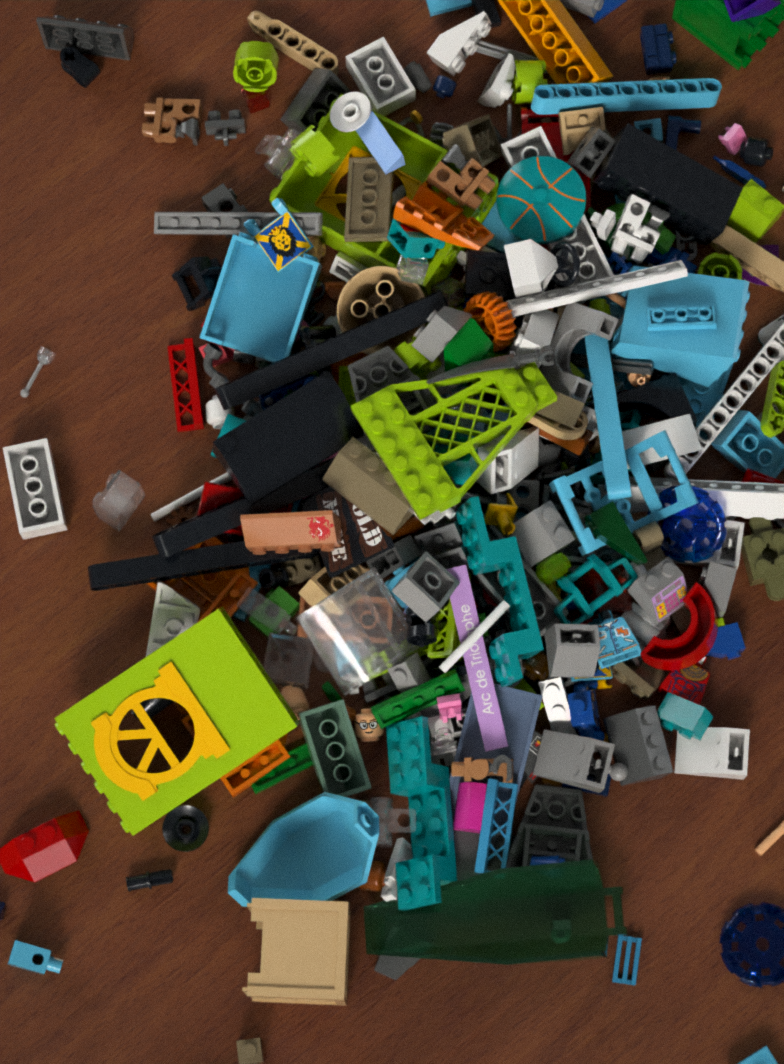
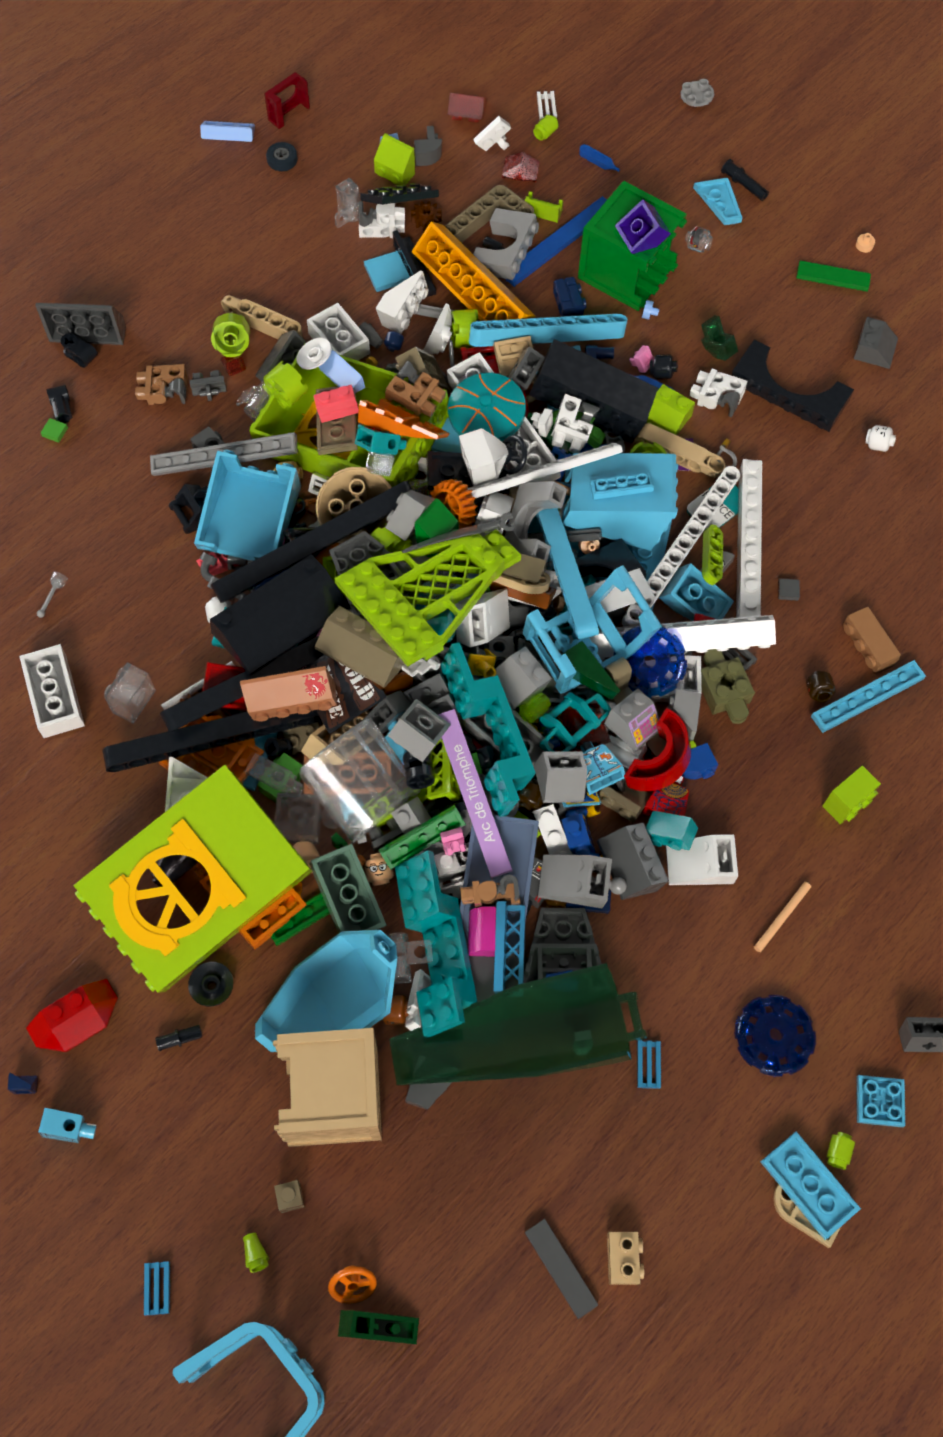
camera: 10 degrees left, 10 degrees down
(47, 166) = (54, 430): none -> bright green tile
(54, 129) = (60, 401): none -> black piece
(193, 383) = (193, 590): red fence -> none
(280, 239) = (261, 457): flag -> none
(370, 185) = (336, 403): none -> coral brick
(442, 742) = (449, 875): clear tile -> none
(474, 636) = (457, 786): white piece -> none
(750, 73) = (649, 310): none -> light blue tile

